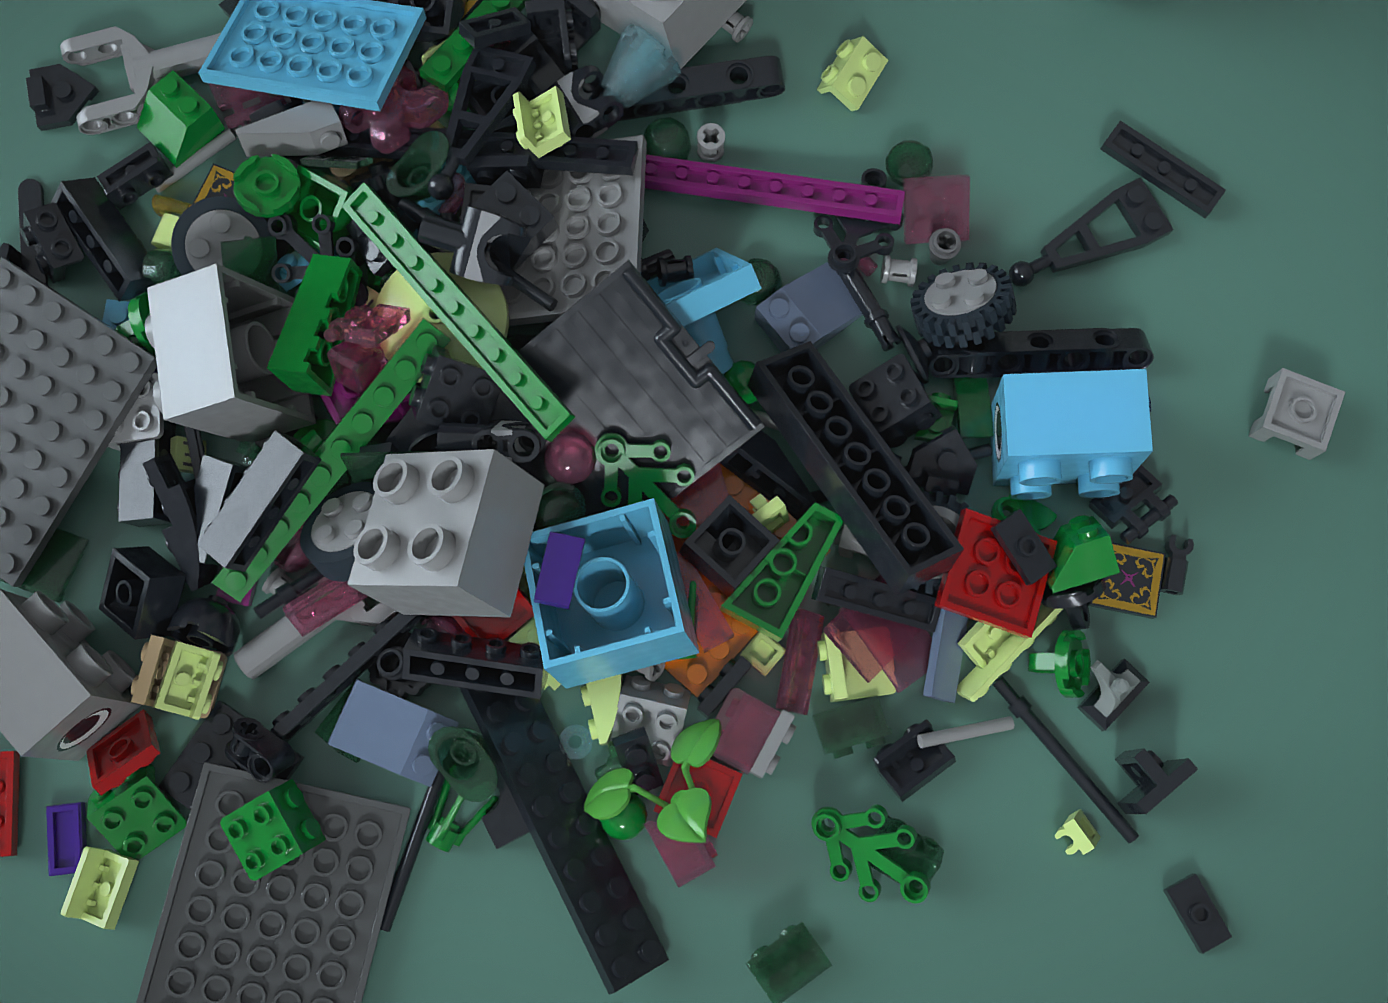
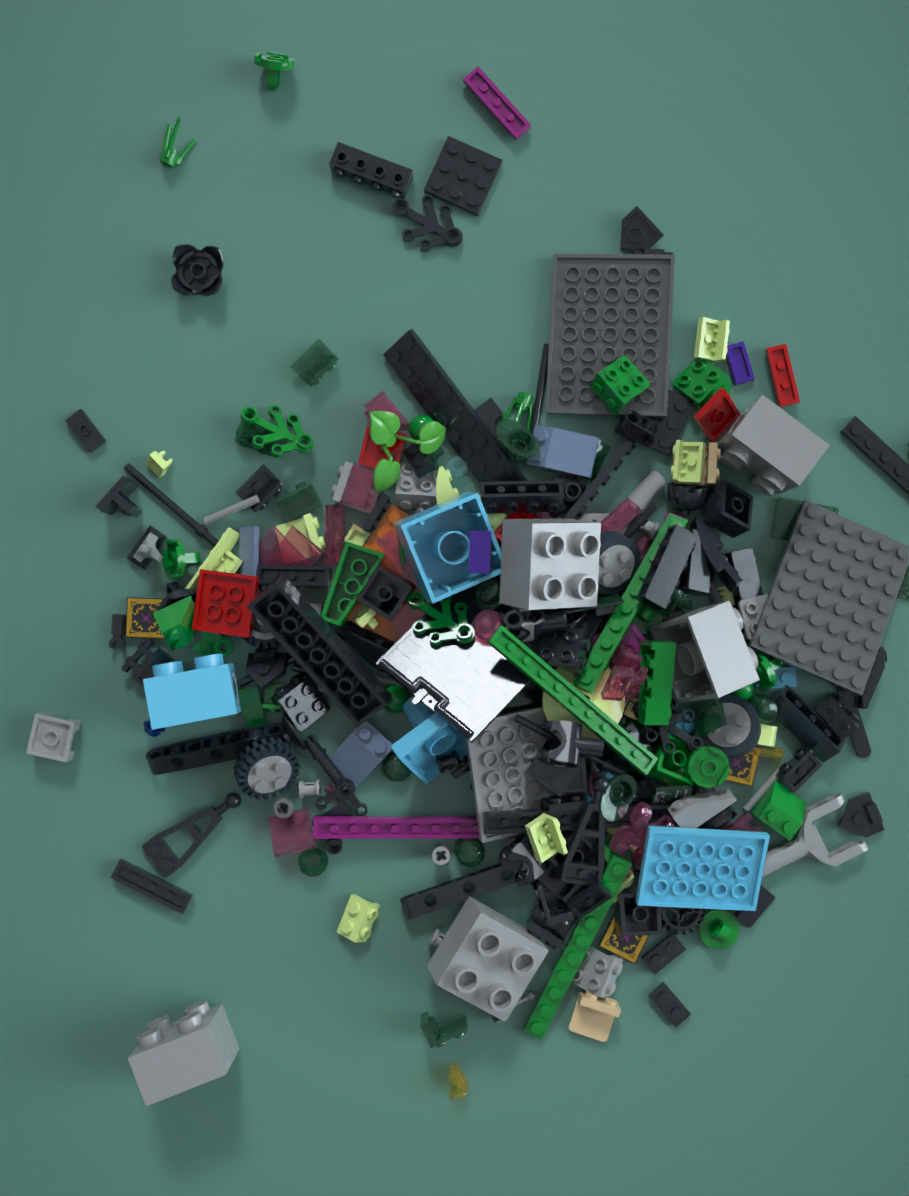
camera: 175 degrees right, 10 degrees up
(638, 67) = (494, 888): clear light blue cone -> none
(1023, 547) = (211, 620): black plate -> none

